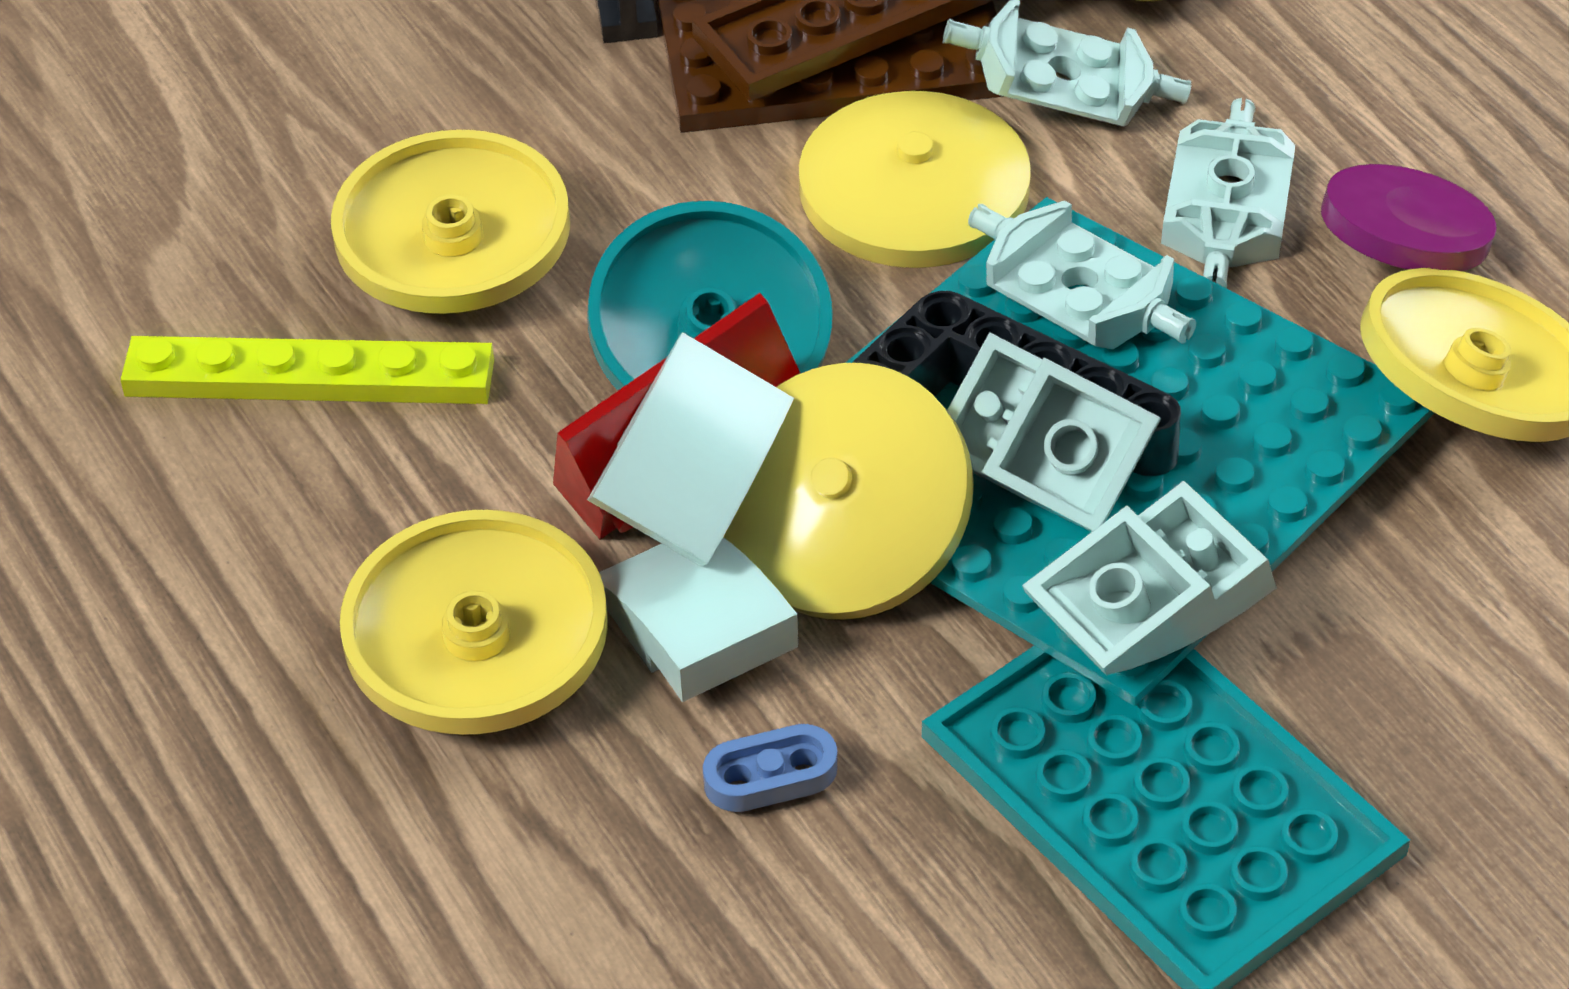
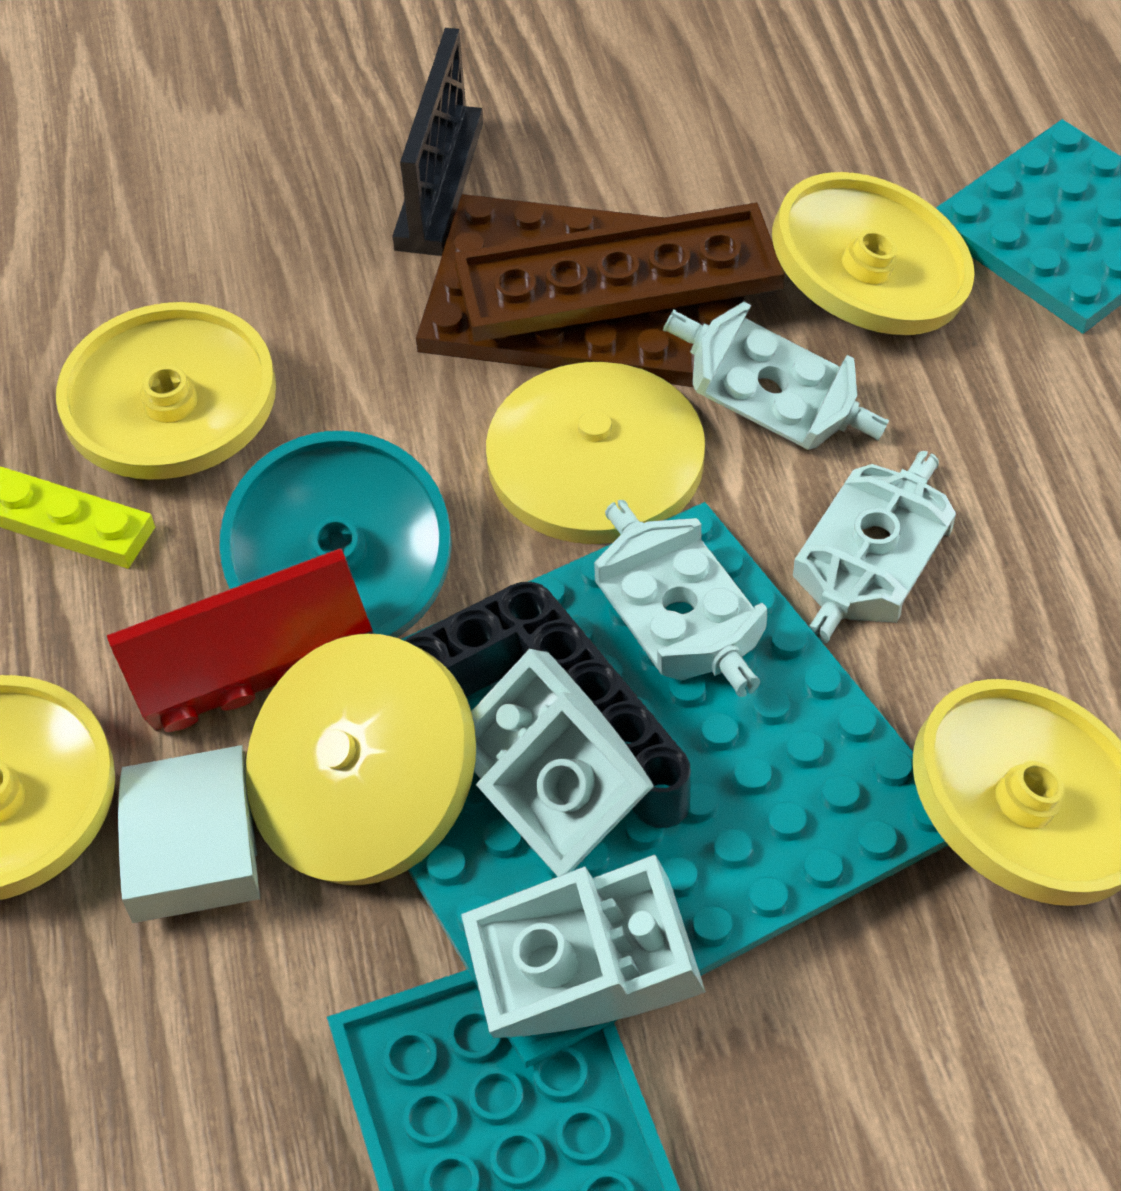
camera: 20 degrees right, 5 degrees up
(692, 450) = (218, 685): light aqua slope -> none
(767, 767) = (179, 1013): medium blue plate -> none
(1408, 218) = (1029, 621): magenta piece -> none

